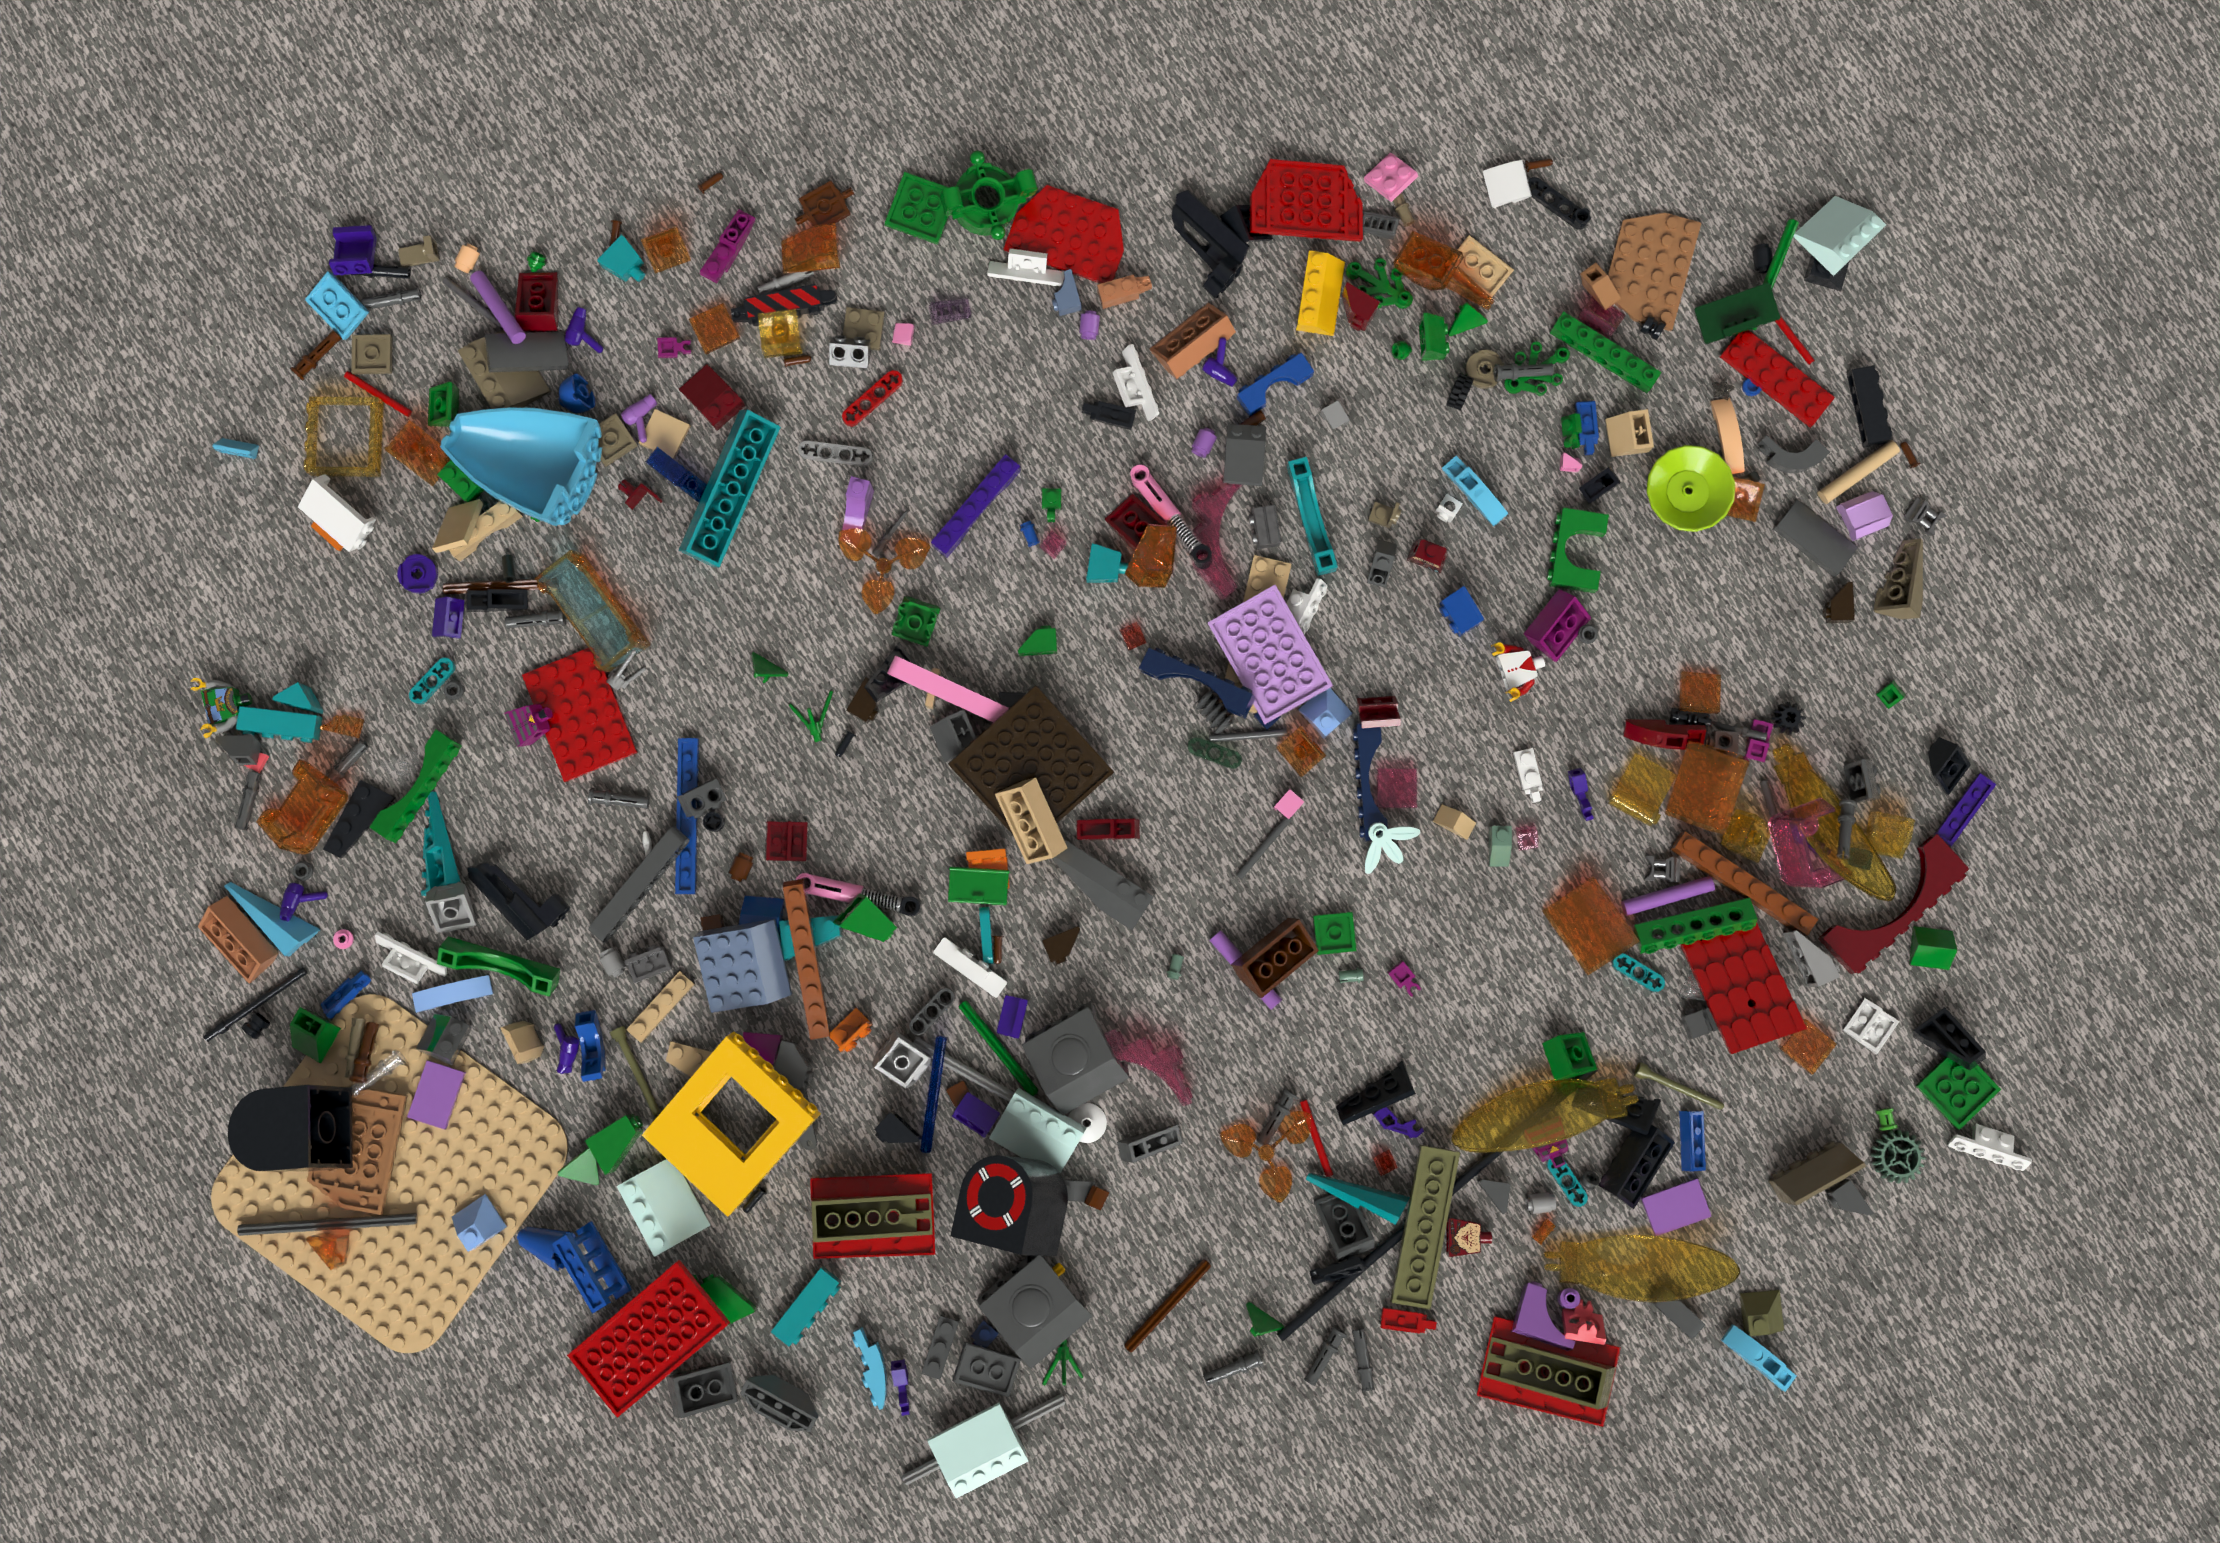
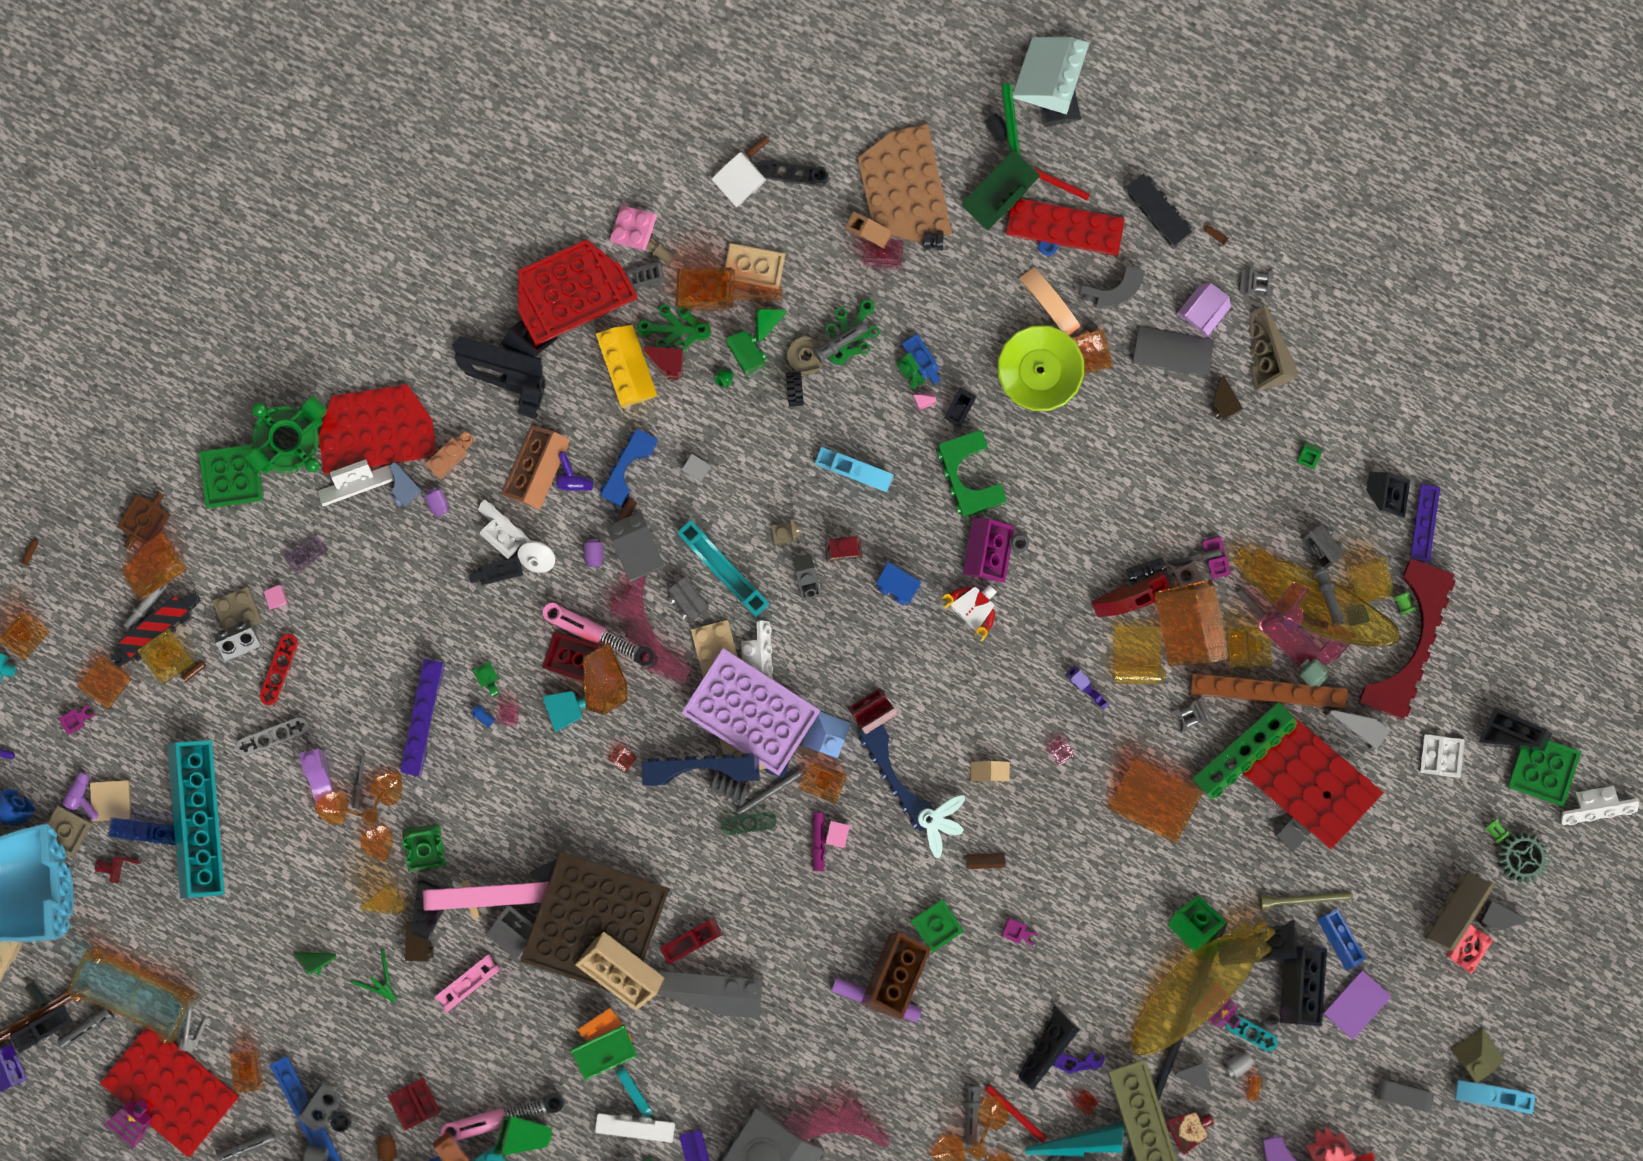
camera: 25 degrees left, 0 degrees up
(440, 681) = (24, 1147): teal beam -> none
(447, 690) = (42, 1134): dark grey plate -> none
(656, 733) = (247, 1071): none -> clear orange slope
(712, 397) = (135, 745): dark red slope -> none
(728, 246) = (77, 602): magenta slope -> none
(844, 744) = (419, 990): black piece -> none
(857, 648) = (387, 900): none -> clear yellow slope
(890, 760) = (467, 983): none -> bright pink plate
(997, 949) = (650, 1098): reddish brown piece -> none
(1041, 642) = (543, 808): green slope -> none
(1061, 945) = (704, 1065): dark brown slope -> none
(1156, 414) = (536, 556): none -> white dish
(1175, 967) = (814, 1030): sand green pin -> none
(1263, 847) = (835, 884): dark grey bar -> none
(1268, 802) = (818, 842): none -> magenta pin
(1351, 975) = (971, 955): sand green pin -> none
(1396, 788) = (924, 769): clear pink plate -> none
(1408, 899) = (983, 861): none -> reddish brown slope
(1443, 513) = (839, 505): white bracket -> none
(1500, 846) = (1040, 772): sand green slope -> none
(1528, 773) = (1032, 694): white hinge -> none
(1562, 1298) = (1305, 1141): medium lavender brick -> none
(1605, 352) = (903, 285): green brick -> none
(1629, 433) = (962, 347): tan slope -> none
(1644, 1267) = (1355, 1073): clear yellow windscreen -> none
(1647, 984) = (1232, 823): teal beam -> none
(1668, 895) = (1208, 736): medium lavender piece -> none
(1700, 692) = (1143, 542): clear orange plate -> none
(1722, 389) = (1023, 263): clear smoke plant -> none
(1791, 1214) = (1484, 941): none -> coral piece
(1795, 721) = (1238, 524): black gear -> none
(1796, 887) = (1313, 672): none -> sand green head
(1808, 1047) = (1398, 803): clear orange plate -> none
(1858, 471) = (1179, 273): tan piece -> none
(1908, 871) = (1404, 603): none -> bright green bush
(1932, 948) = (1459, 659): green slope -> none

